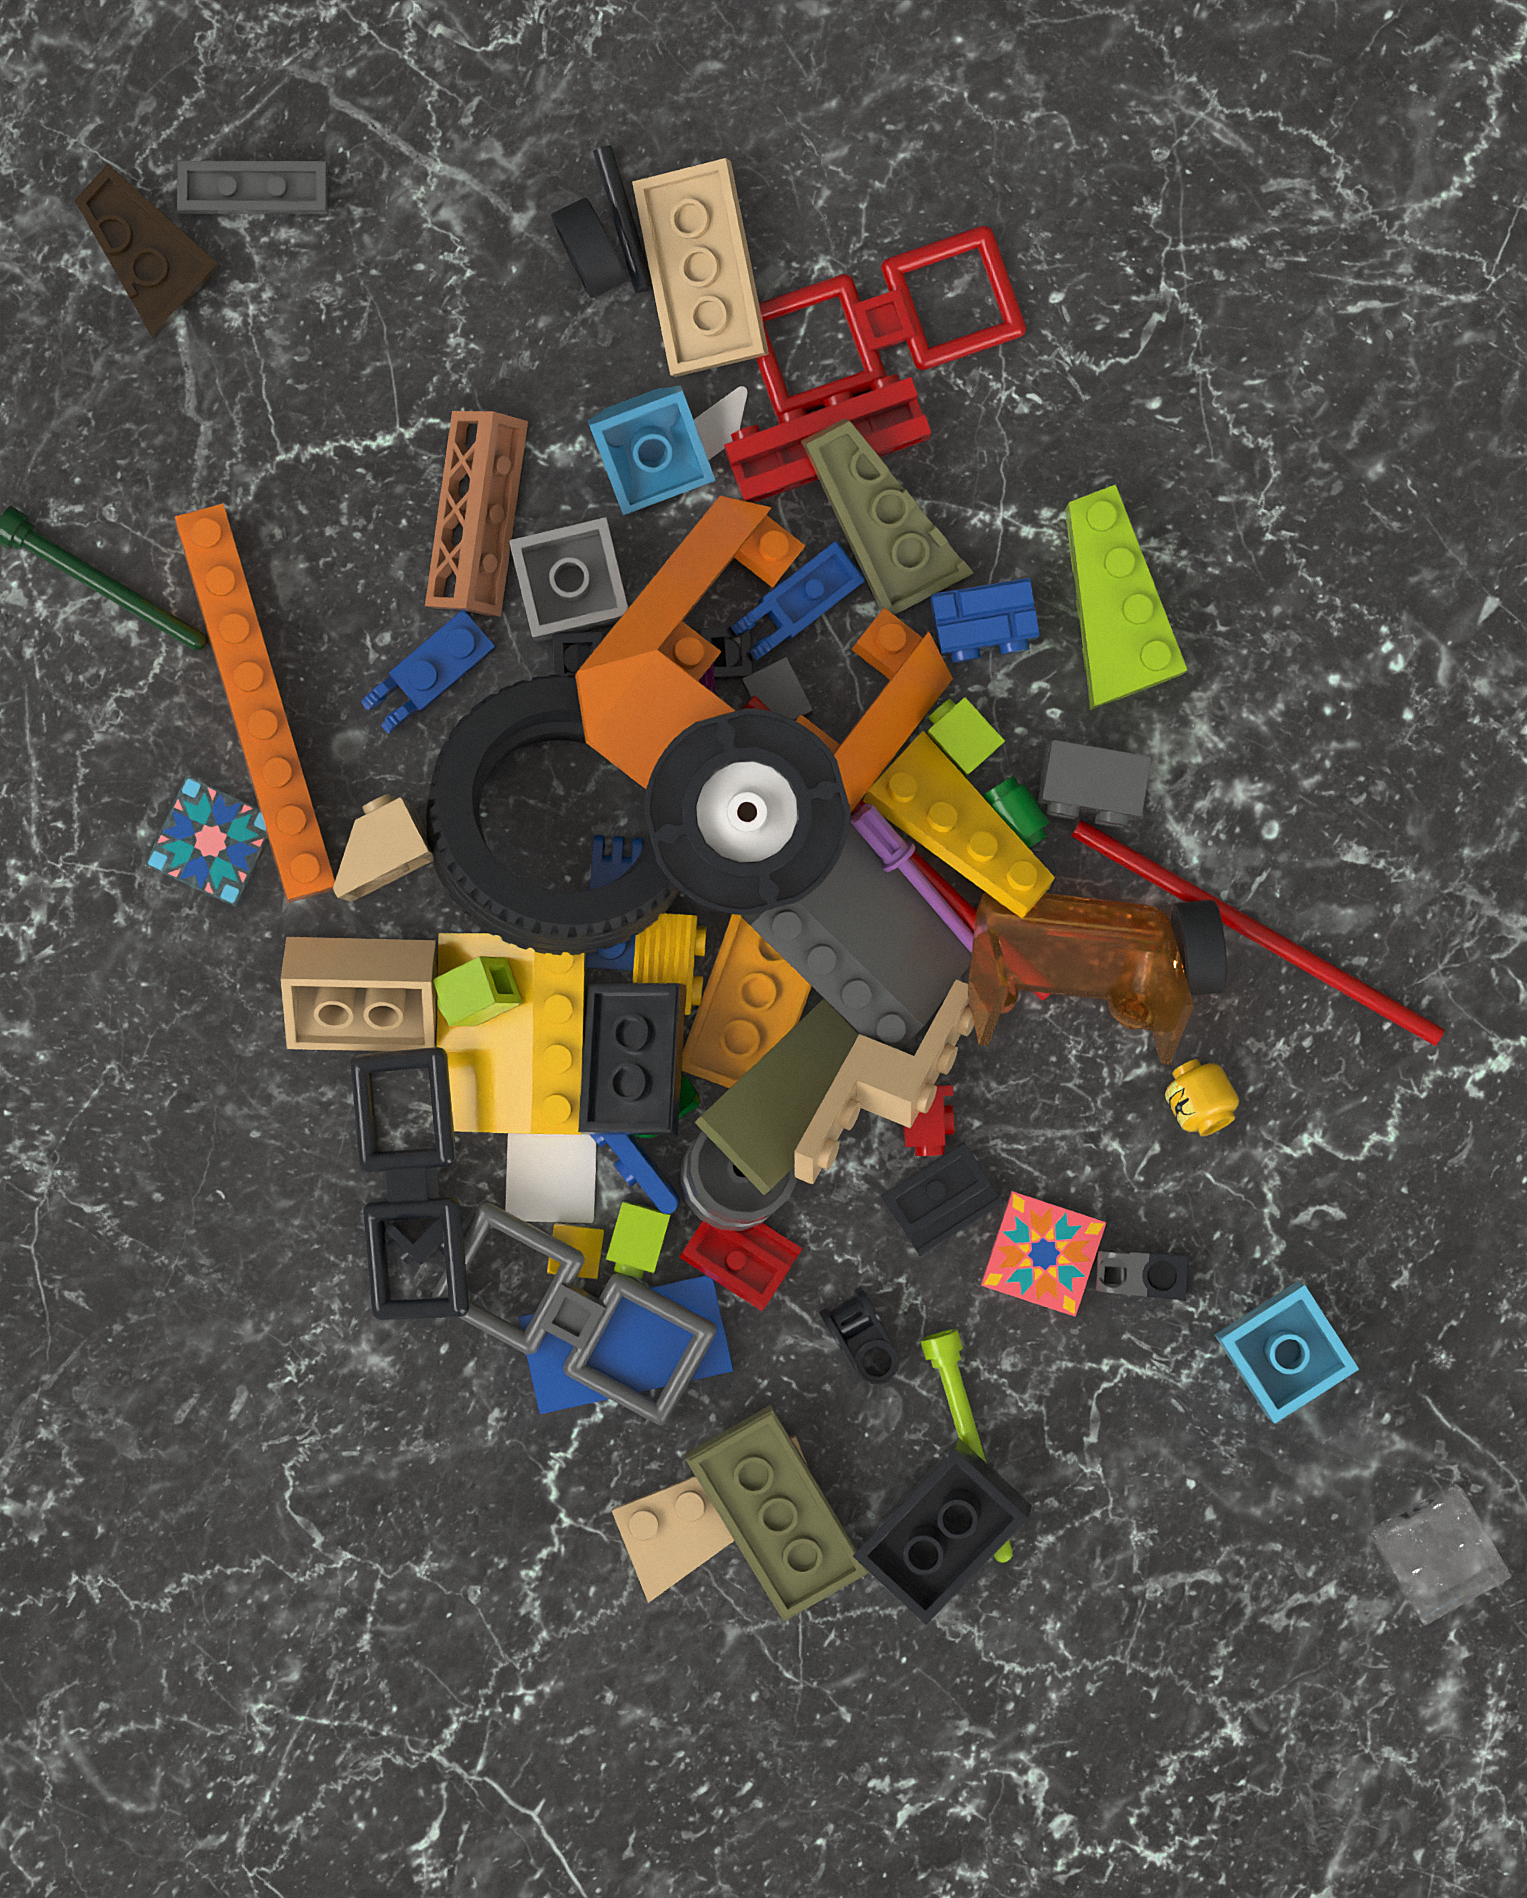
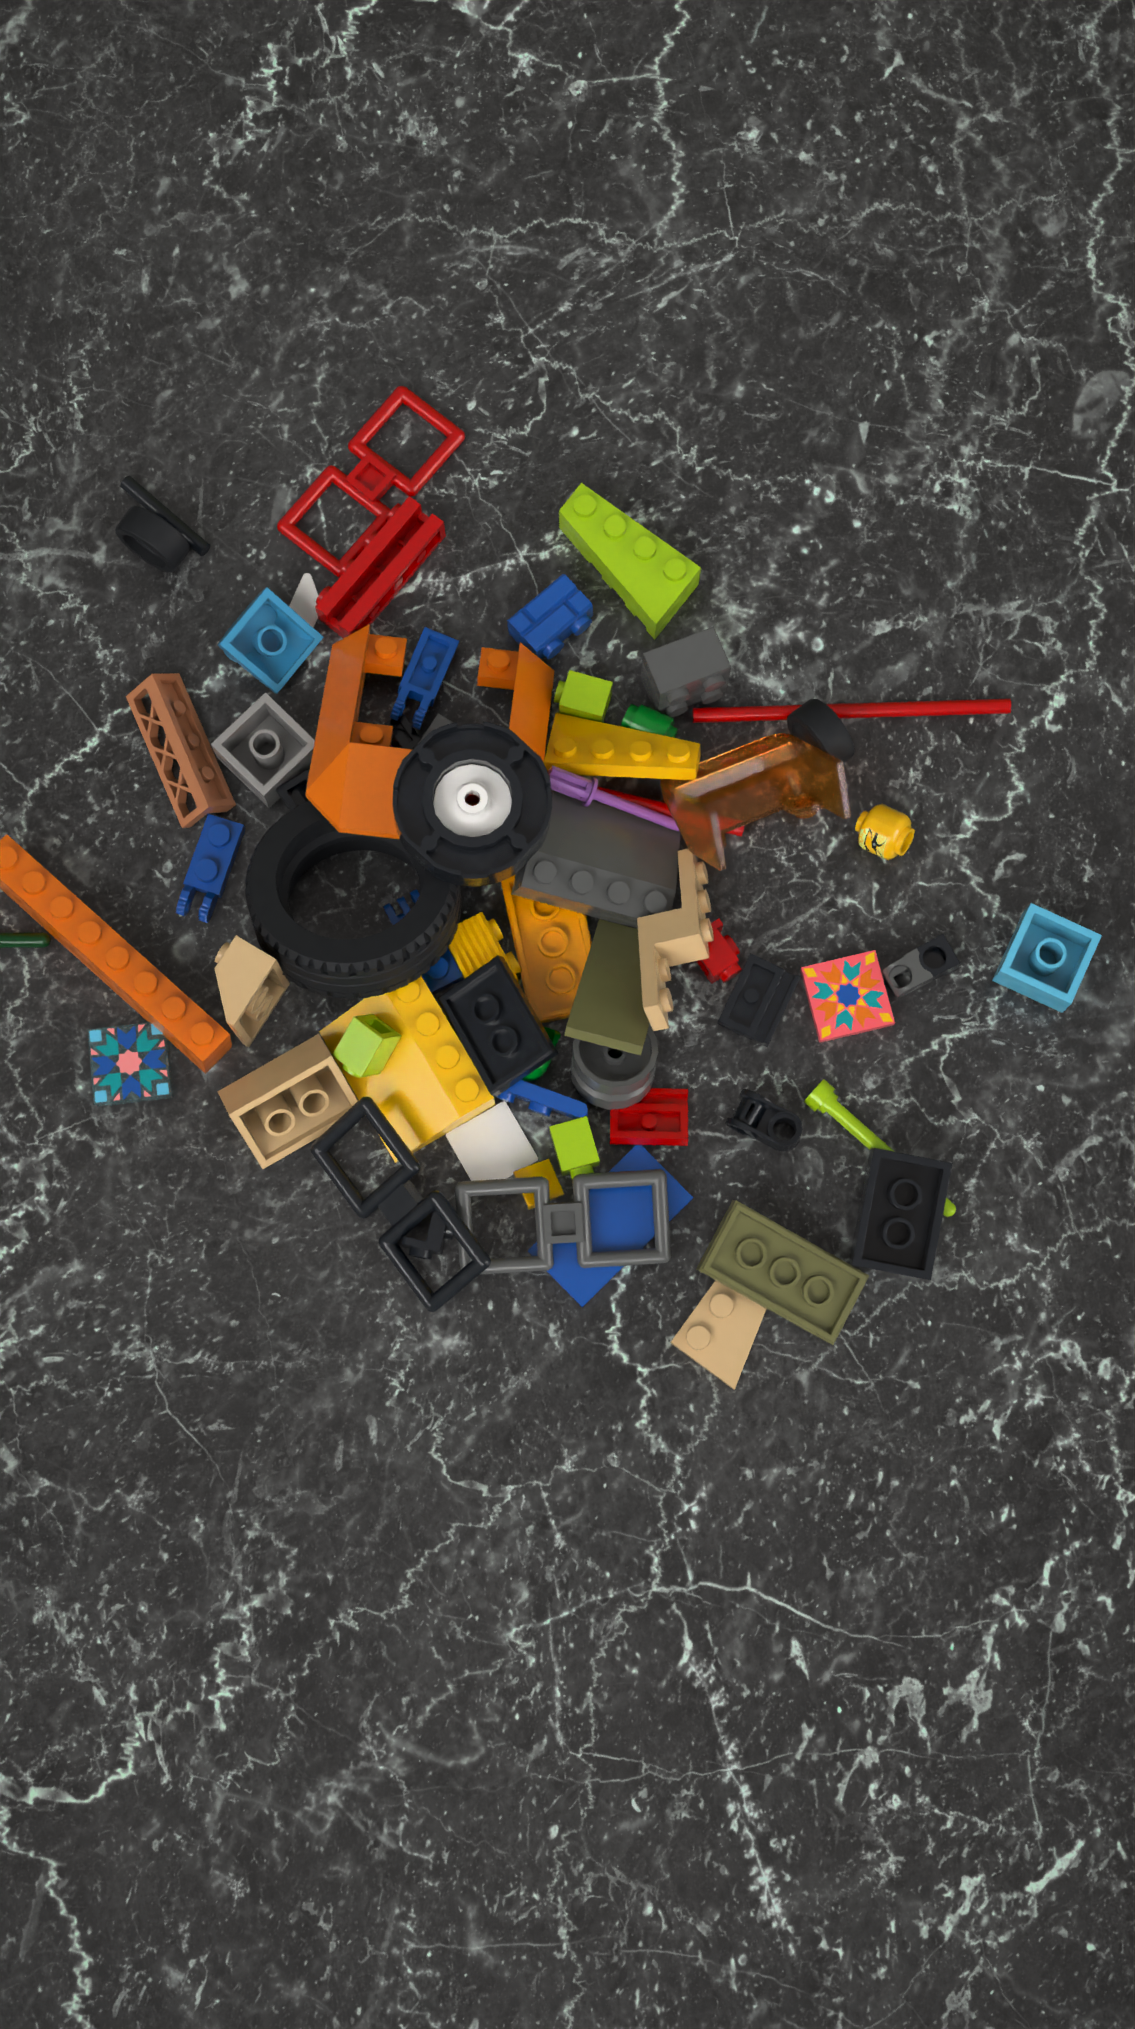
camera: 30 degrees left, 10 degrees down
(700, 267) = (233, 512): tan plate -> none
(887, 531) = (457, 602): olive wing -> none

